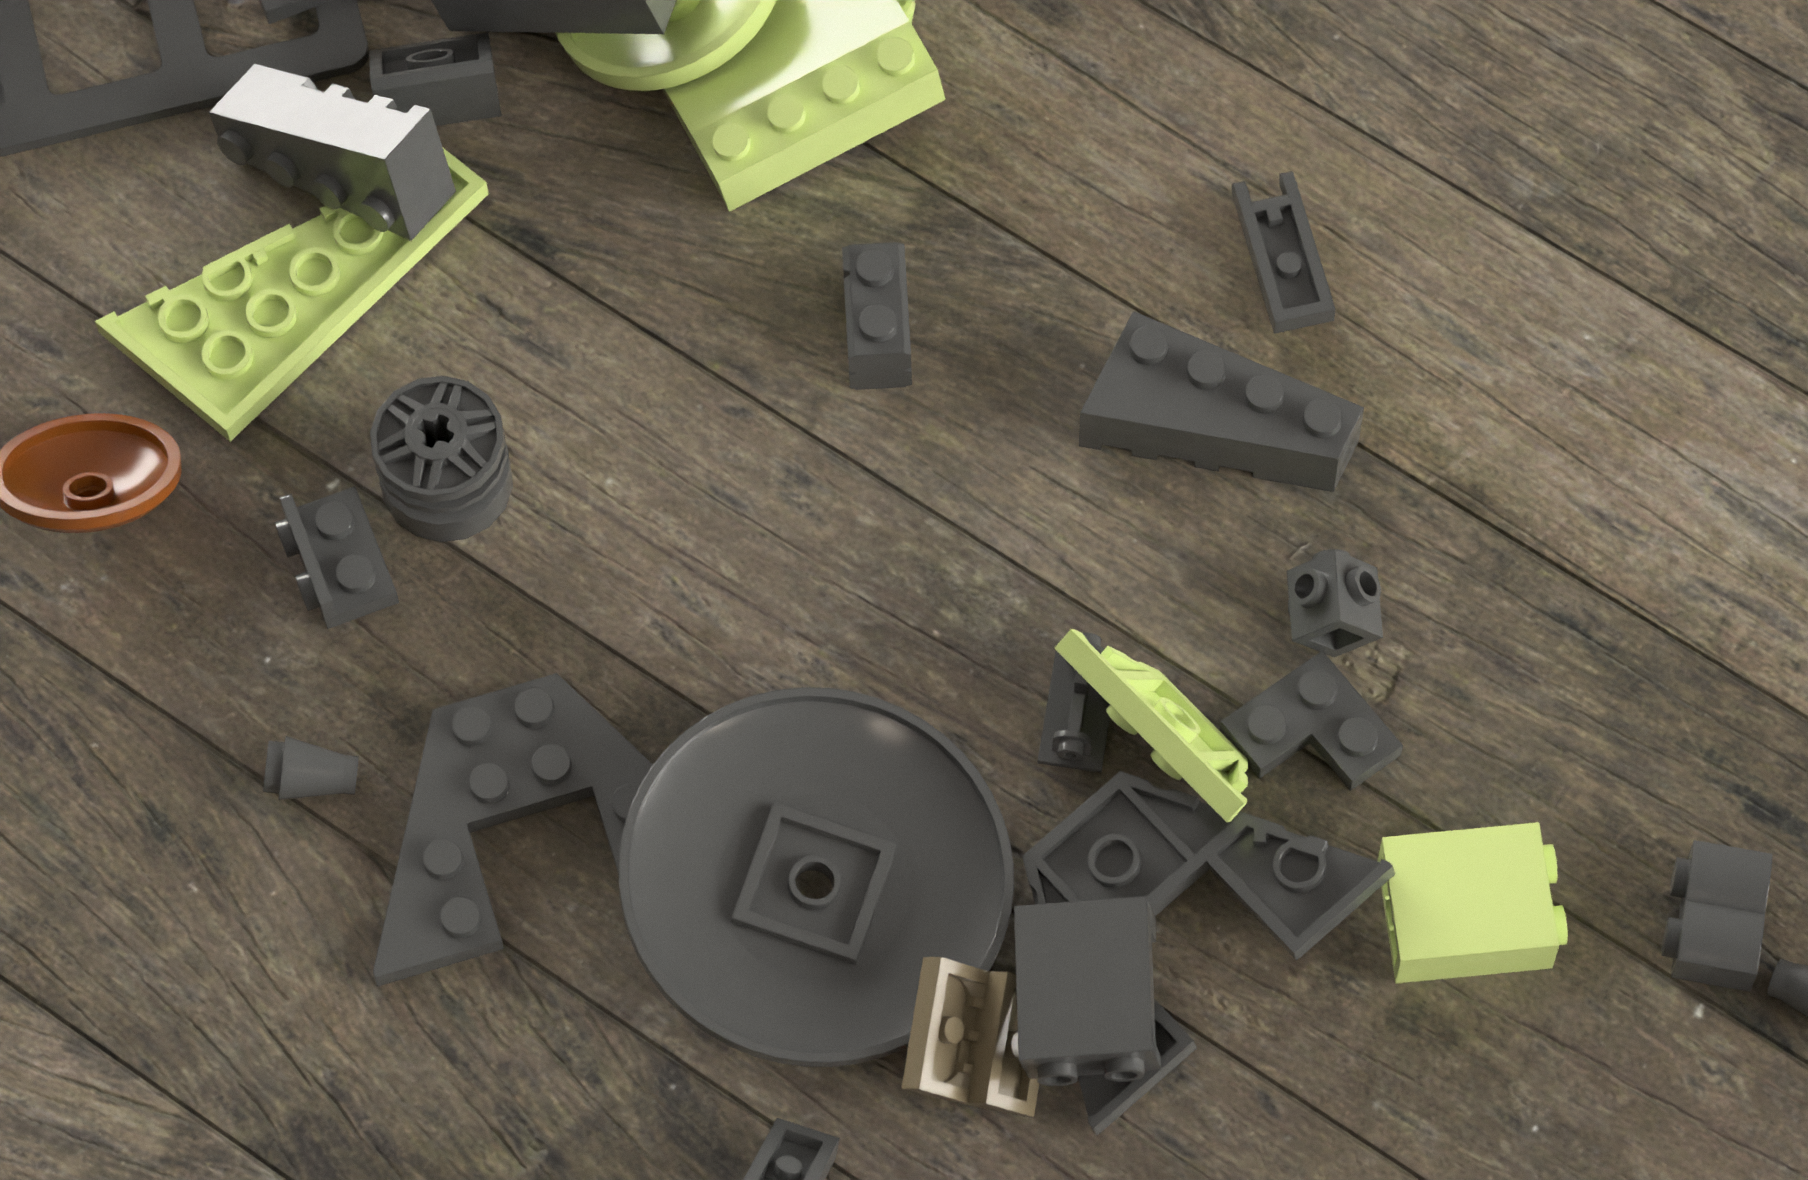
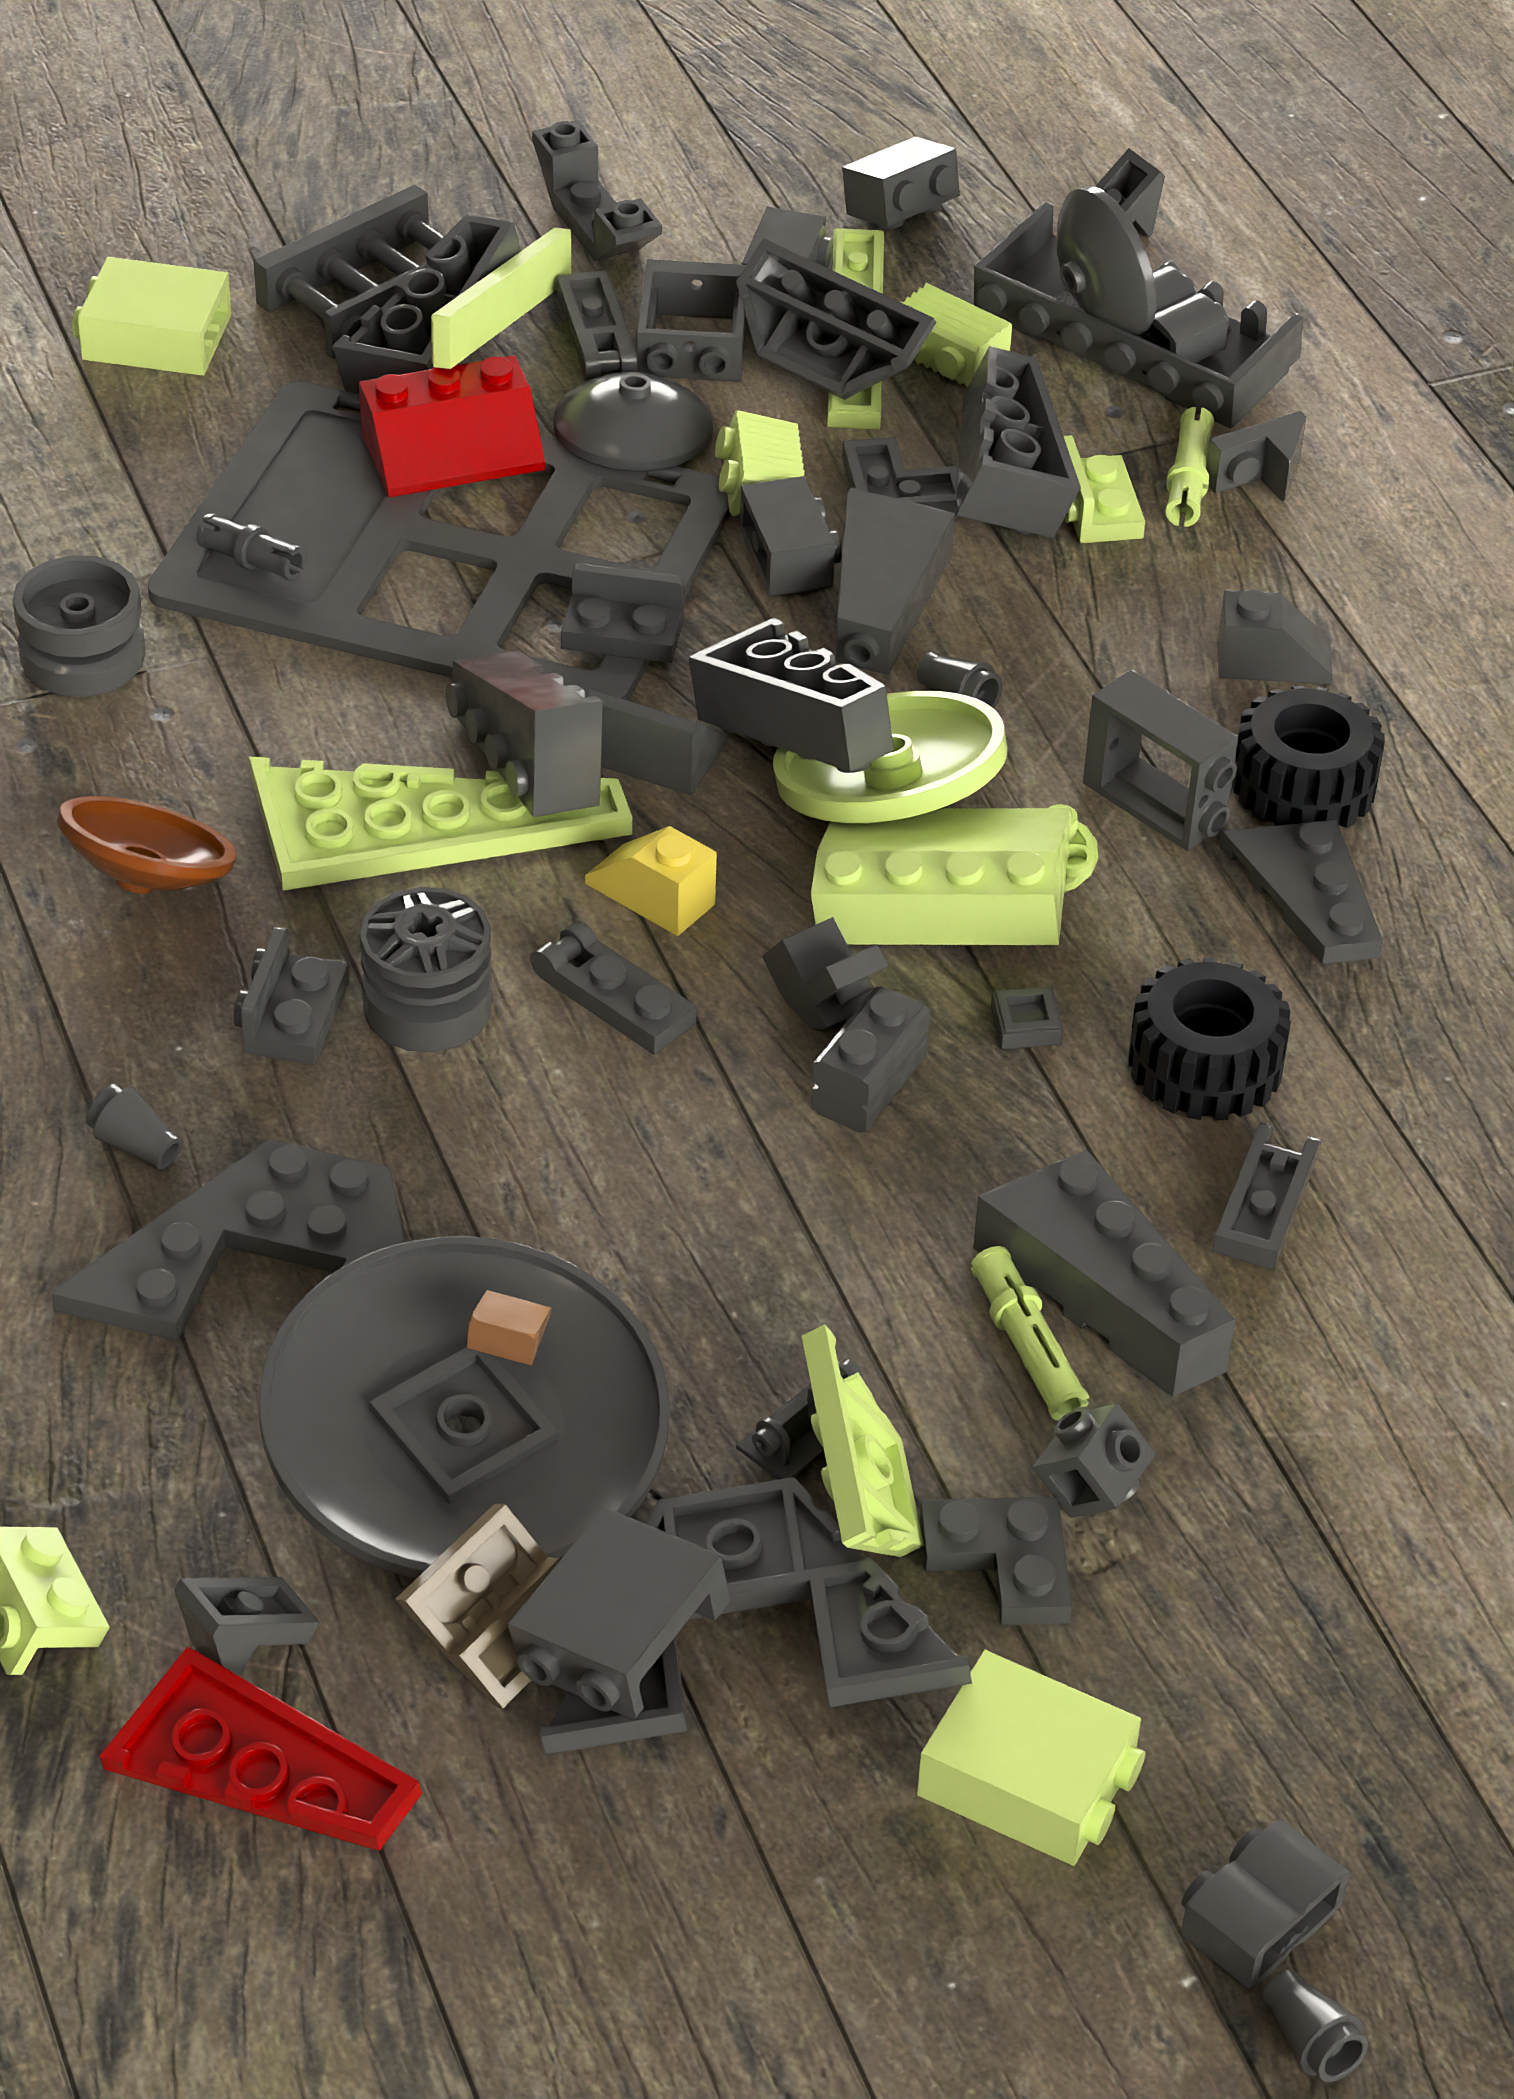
camera: 30 degrees right, 20 degrees down
(550, 231) = (660, 878): none -> light yellow slope
(597, 369) = (613, 988): none -> dark grey plate
(775, 255) = (822, 975): none -> dark grey brick
(806, 782) = (507, 1327): none -> medium nougat slope
(962, 186) = (1027, 1018): none -> dark grey tile
(1147, 84) = (1209, 1039): none -> black tyre
(1170, 494) = (1017, 1312): none -> yellowish green pin

